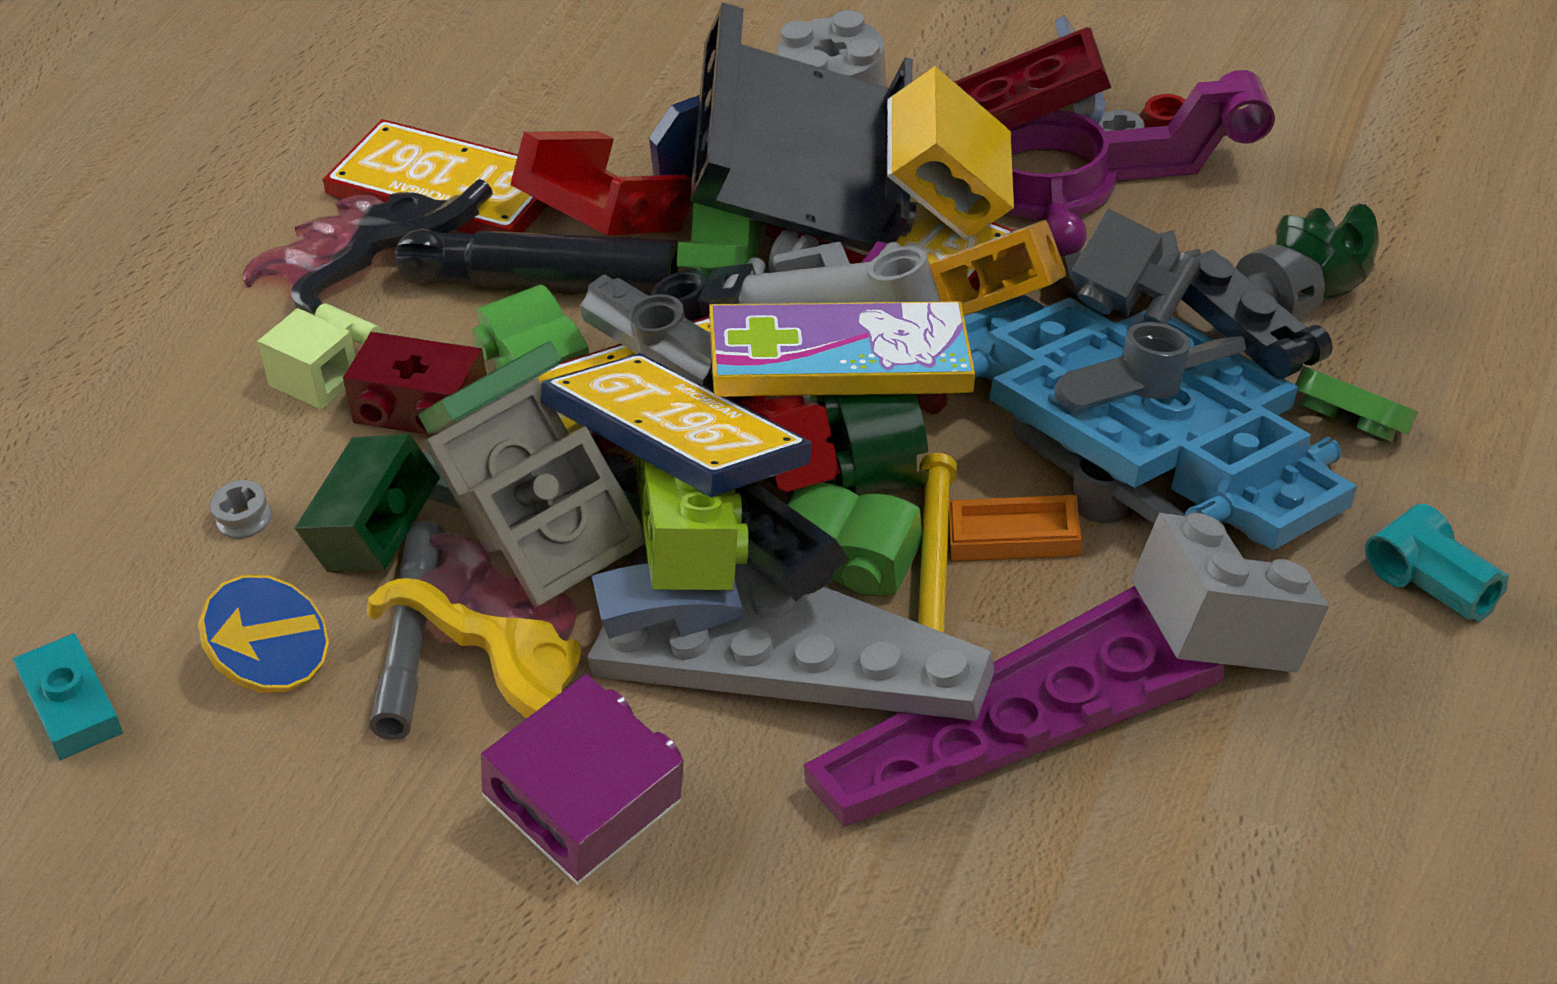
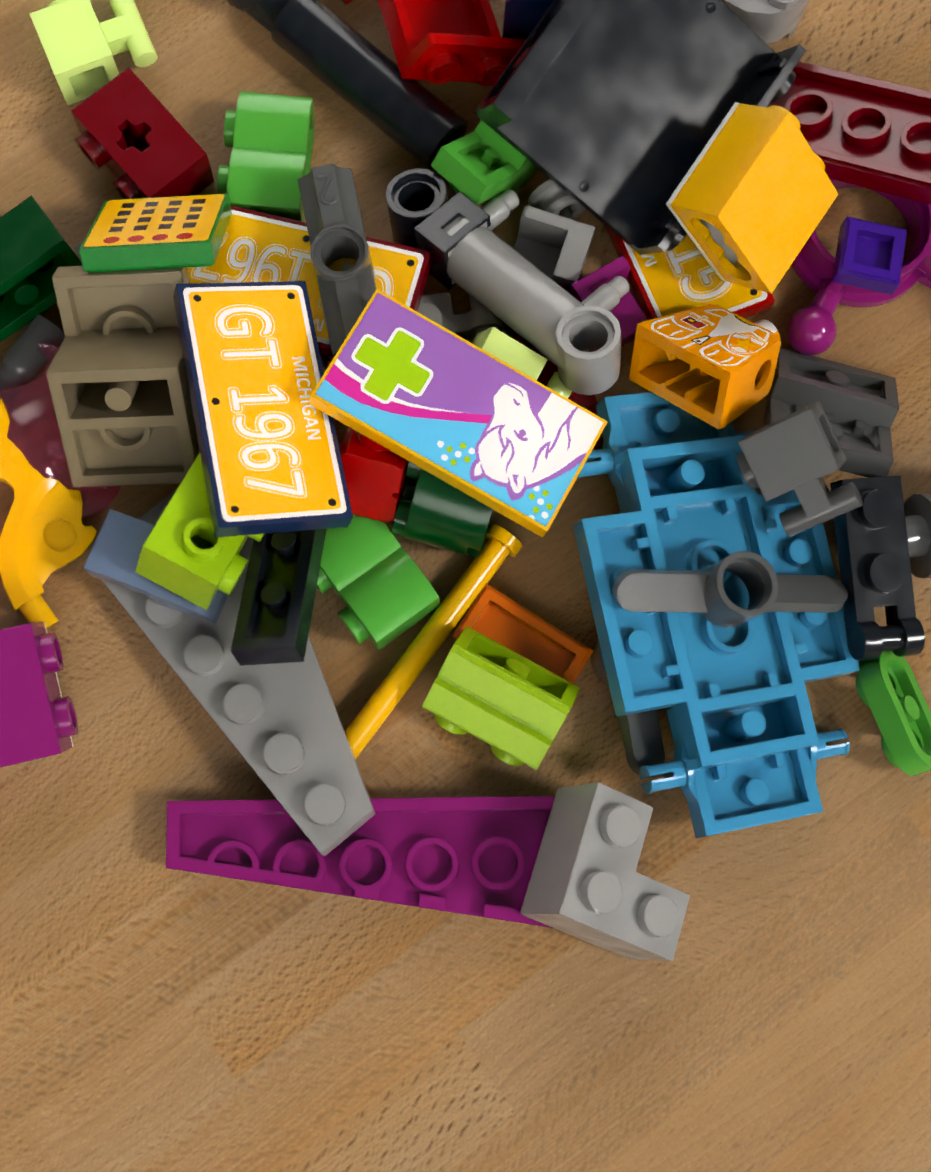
camera: 20 degrees right, 35 degrees up
(1030, 549) = (500, 699): none -> lime brick
(1066, 155) = (869, 255): none -> dark purple tile
(1424, 551) = (818, 918): teal piece -> none

